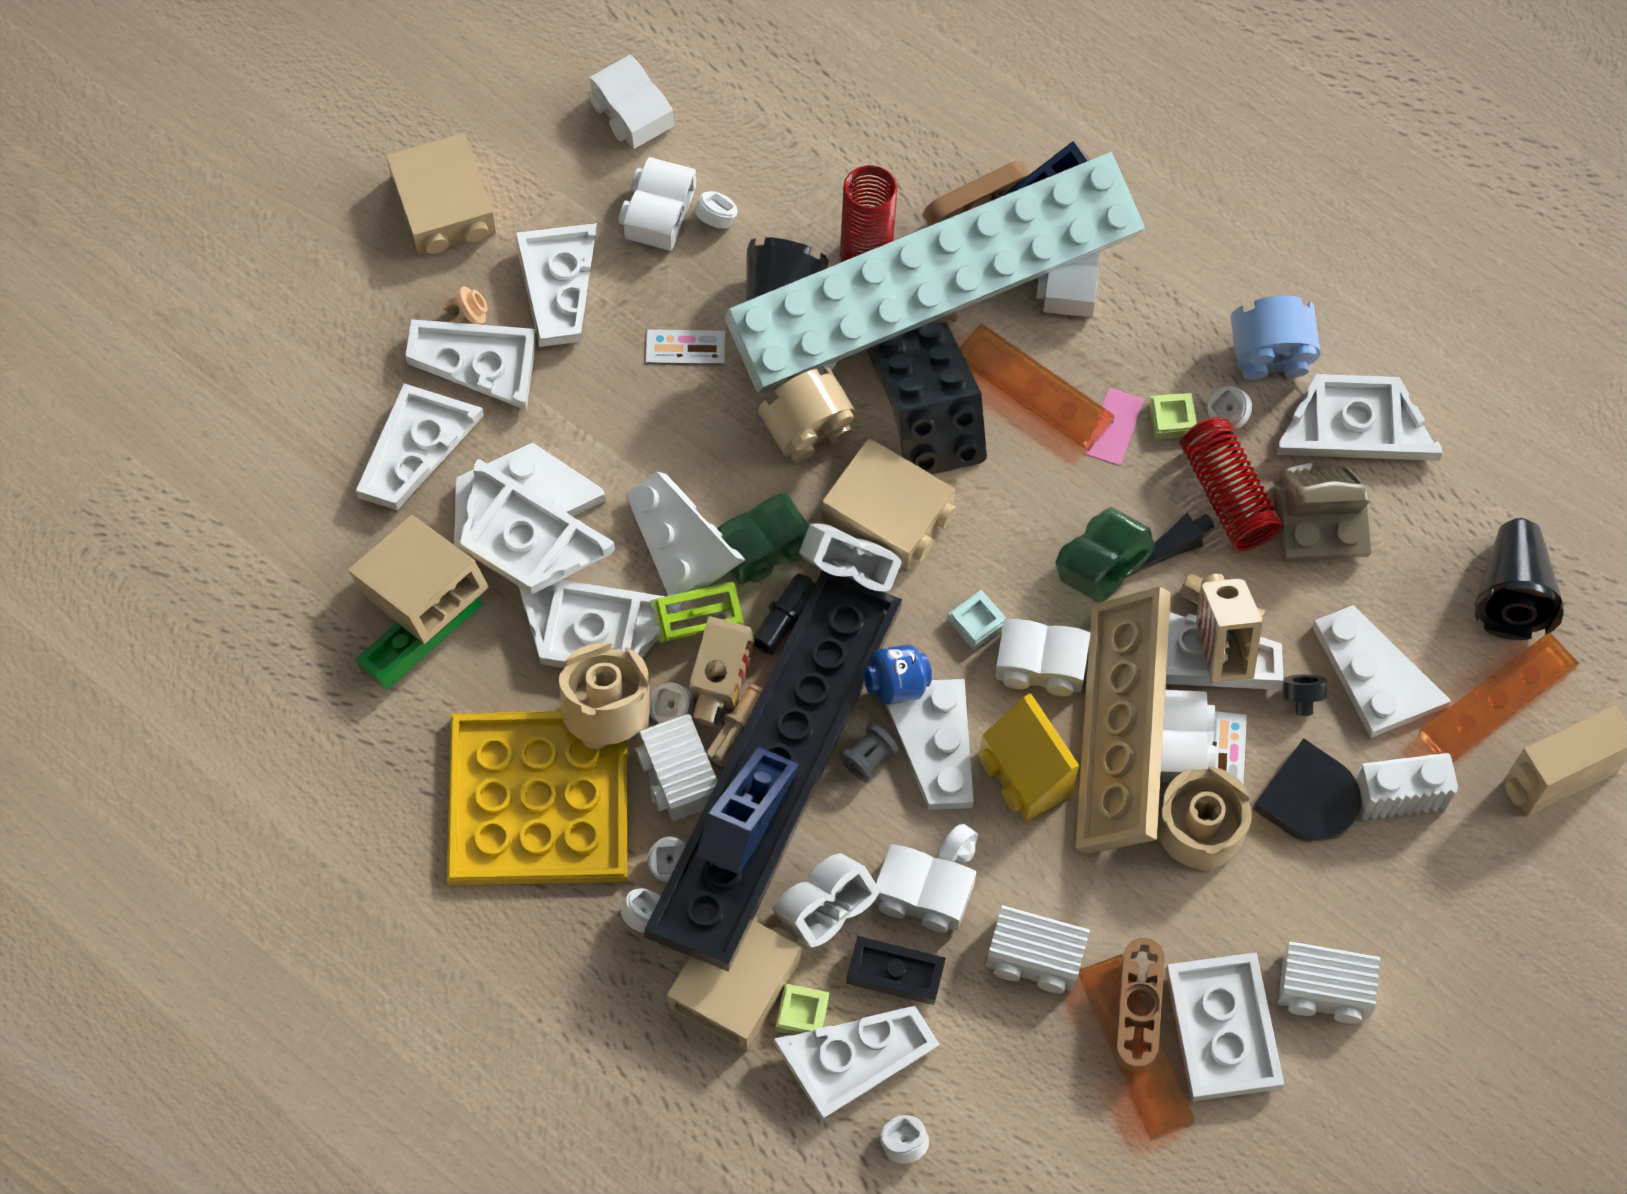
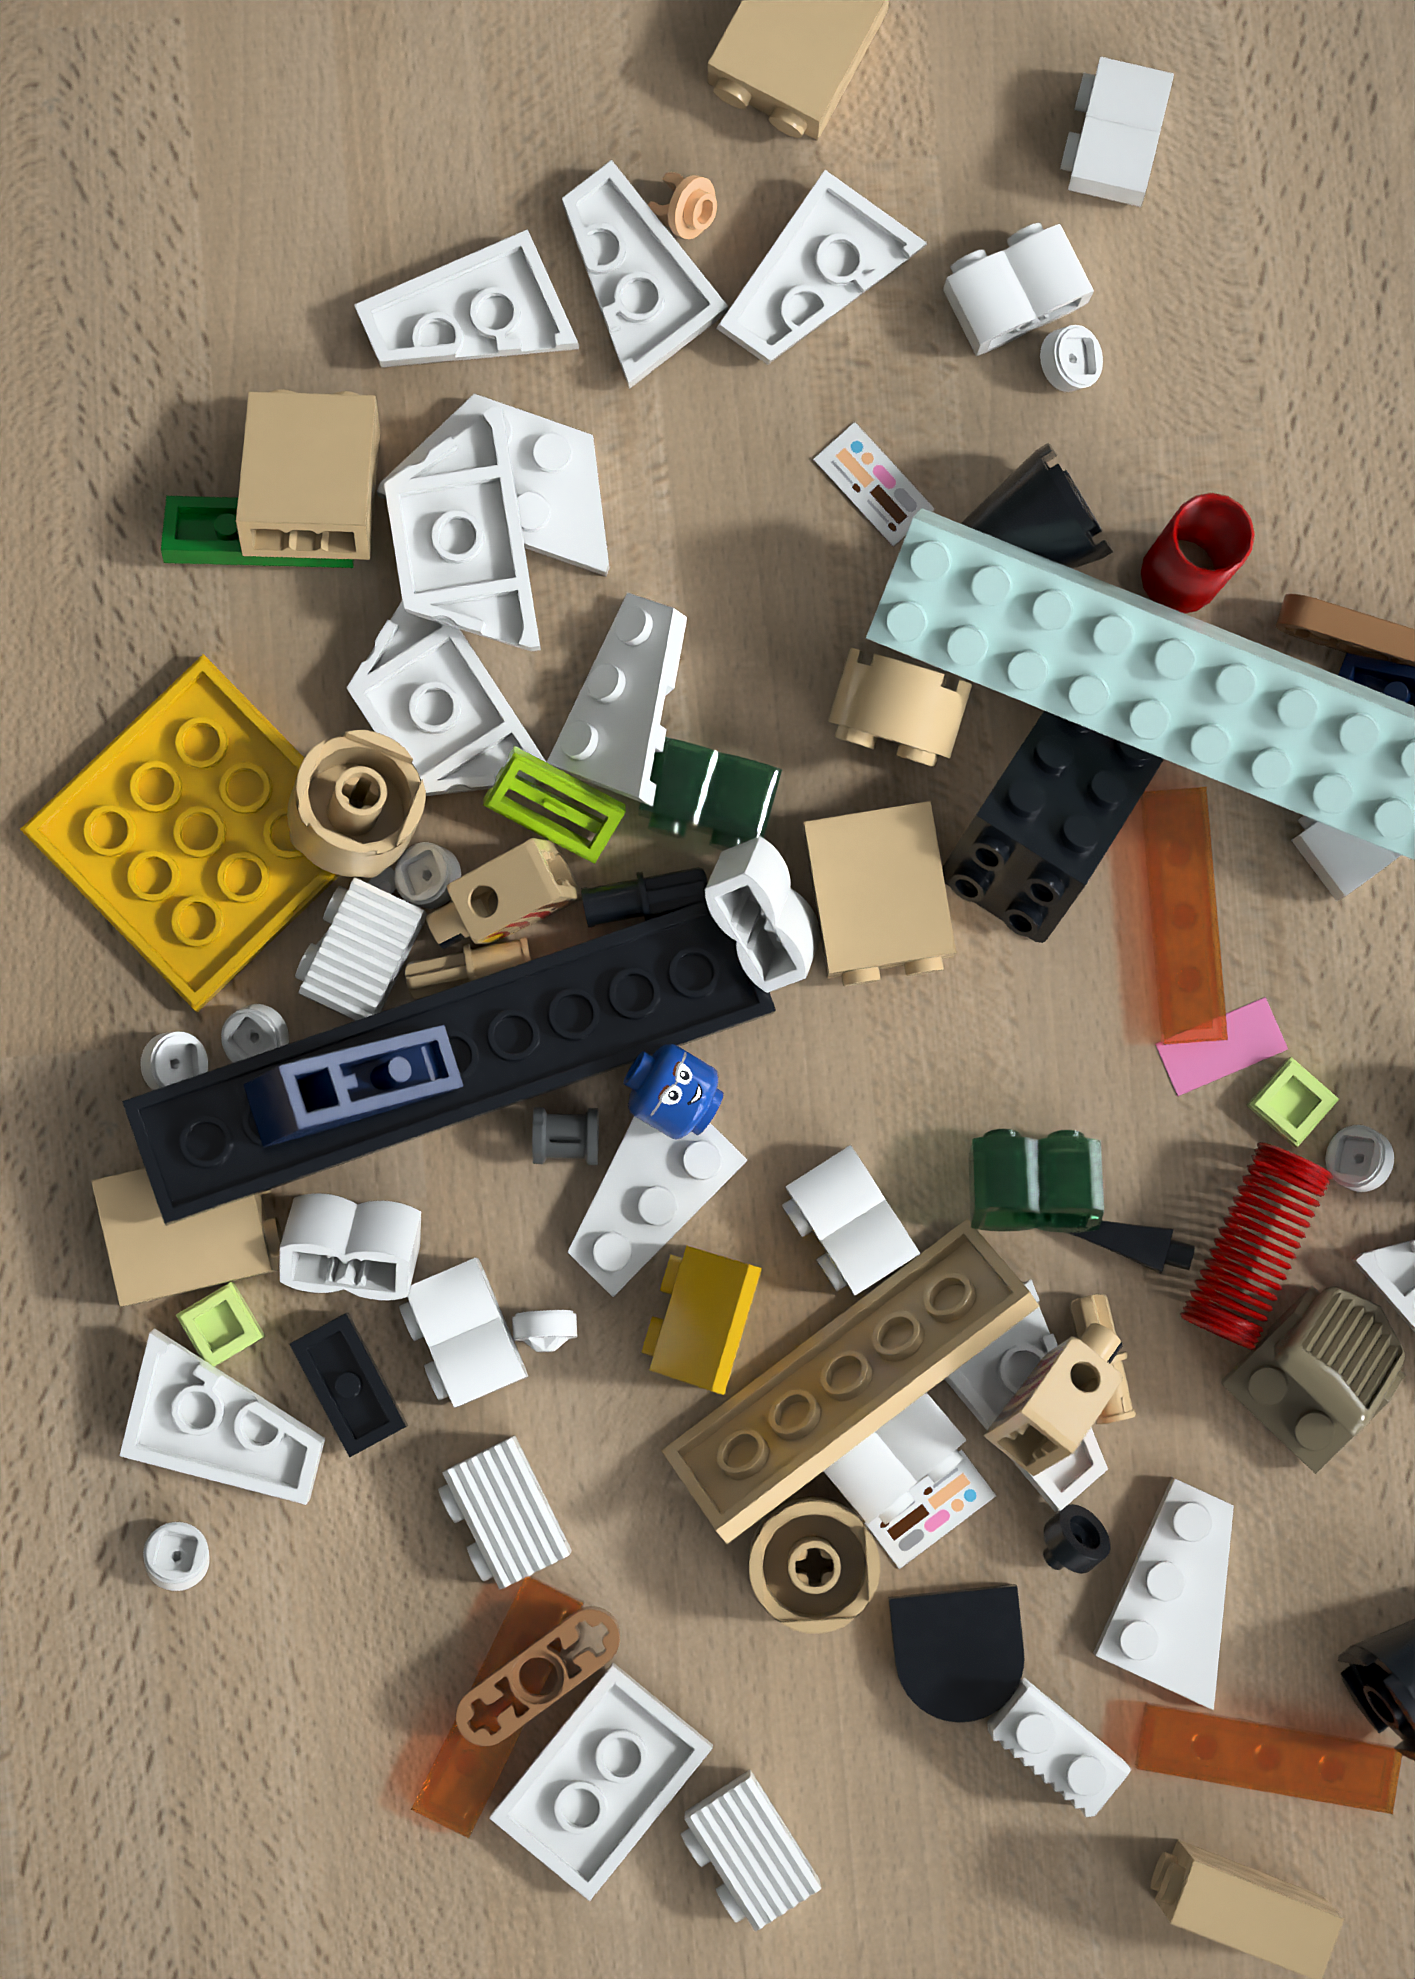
camera: 50 degrees right, 20 degrees up
(977, 620) = (836, 1108): light aqua tile -> none

